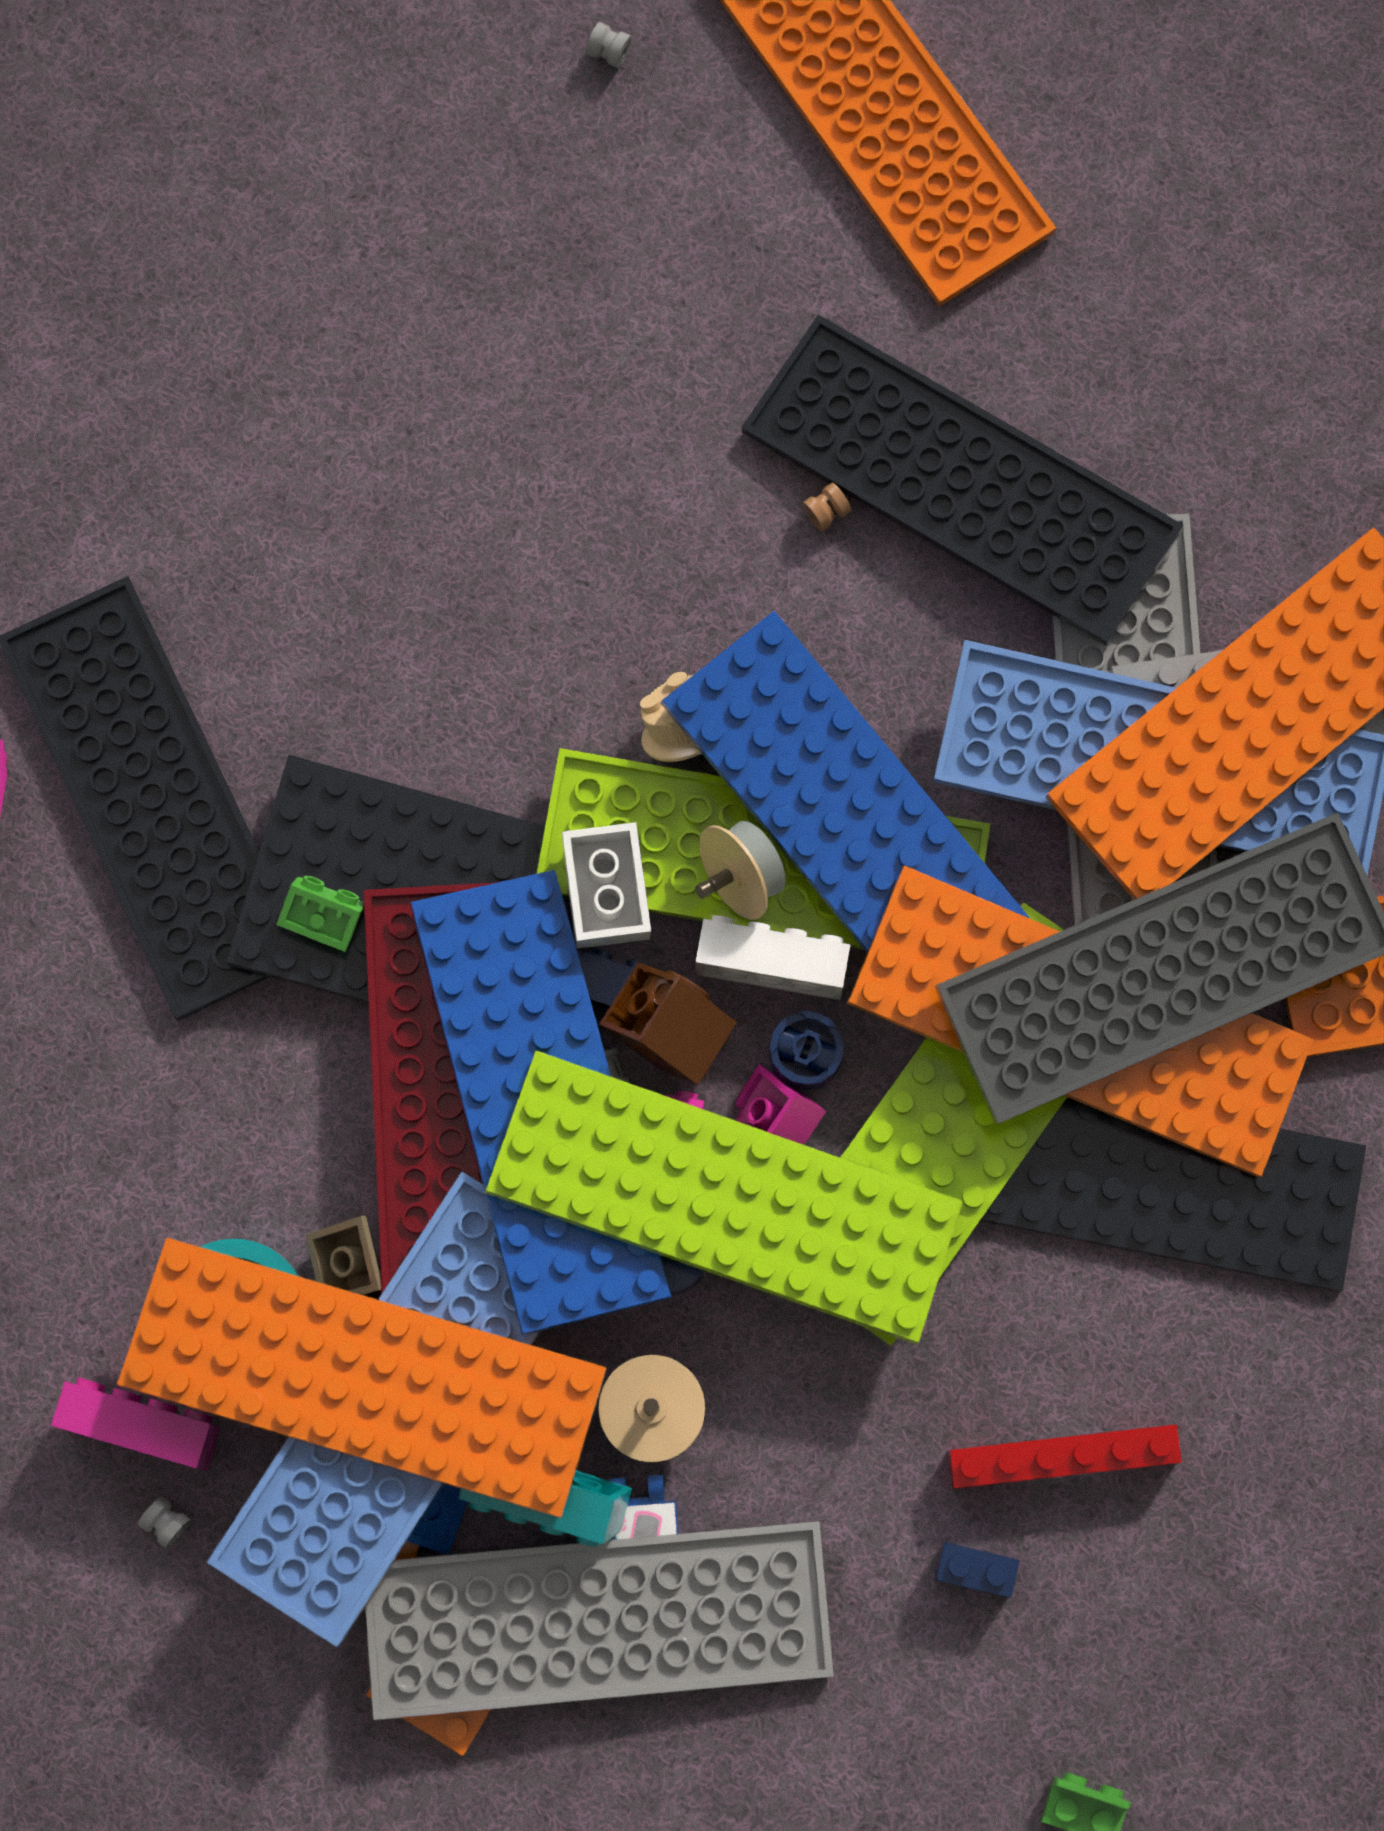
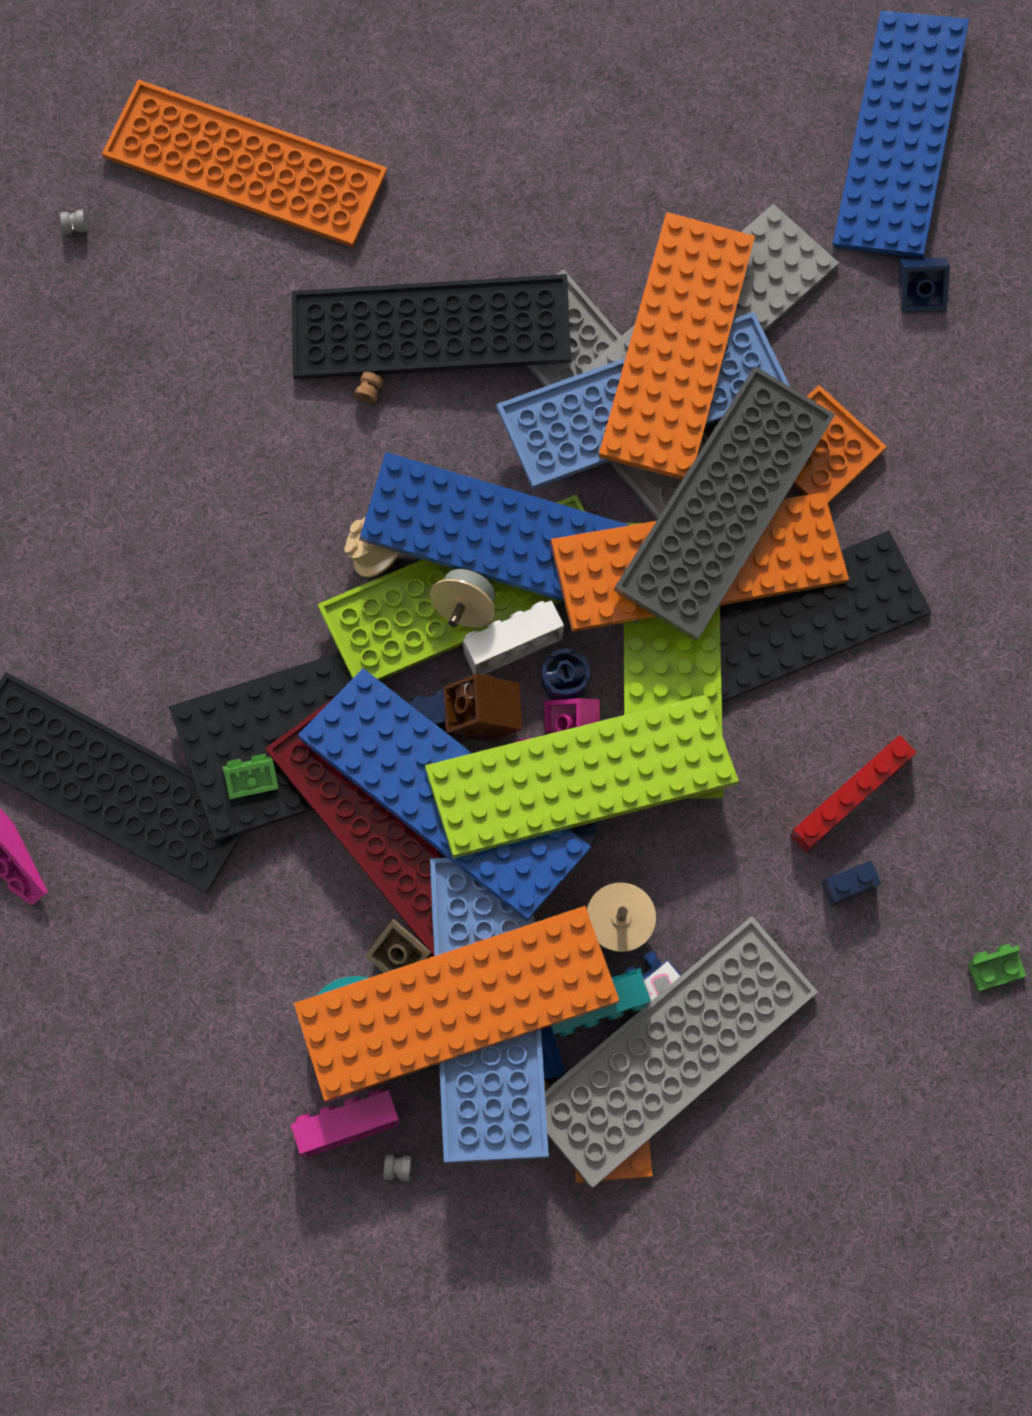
camera: 40 degrees left, 5 degrees down
(606, 885) = (397, 656): white brick -> none

